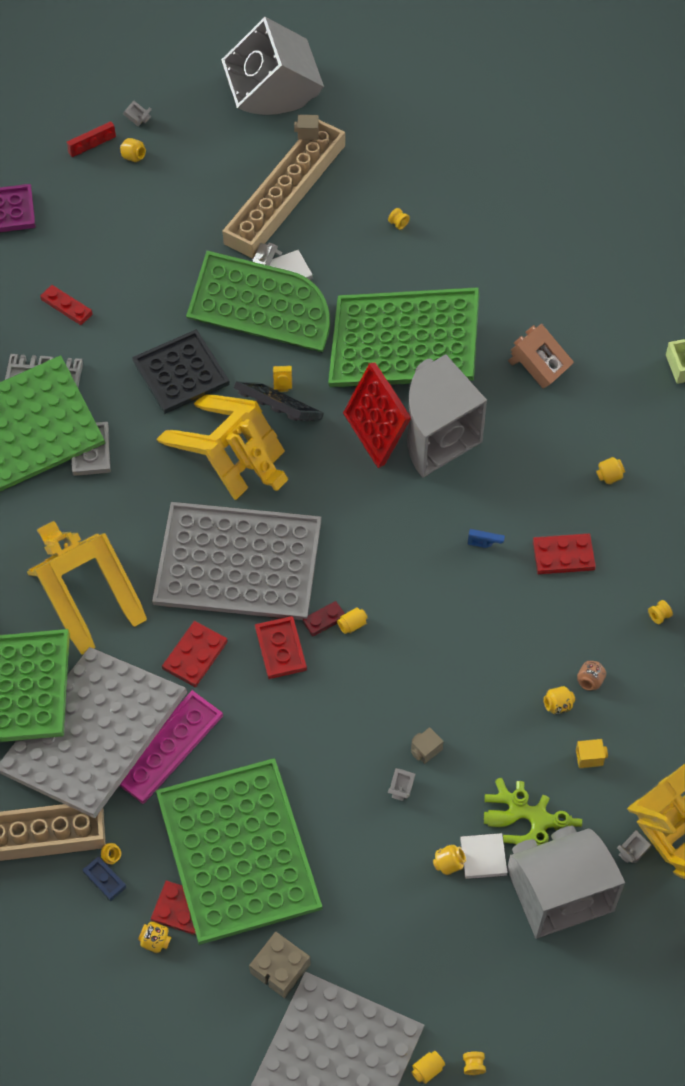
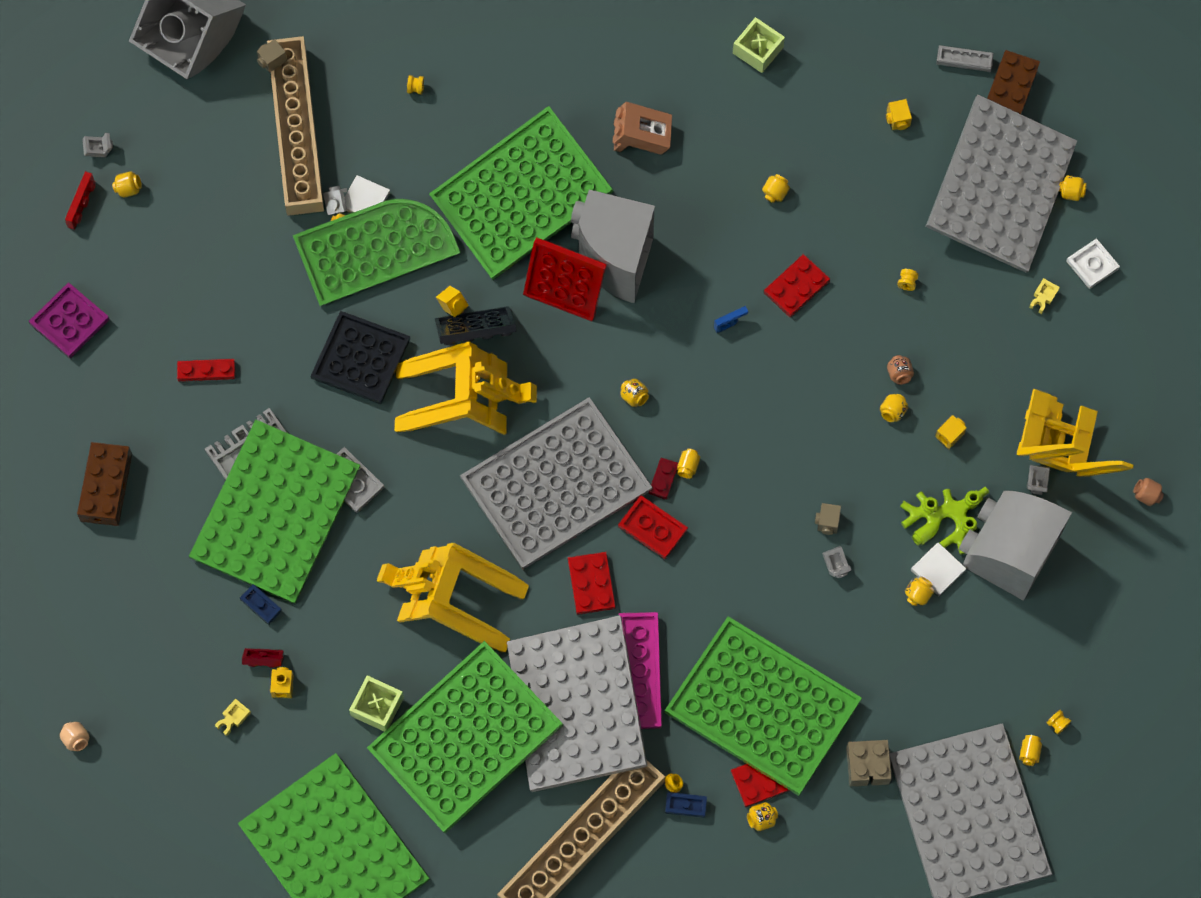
camera: 40 degrees left, 10 degrees up
(359, 538) = (634, 392): none -> yellow head

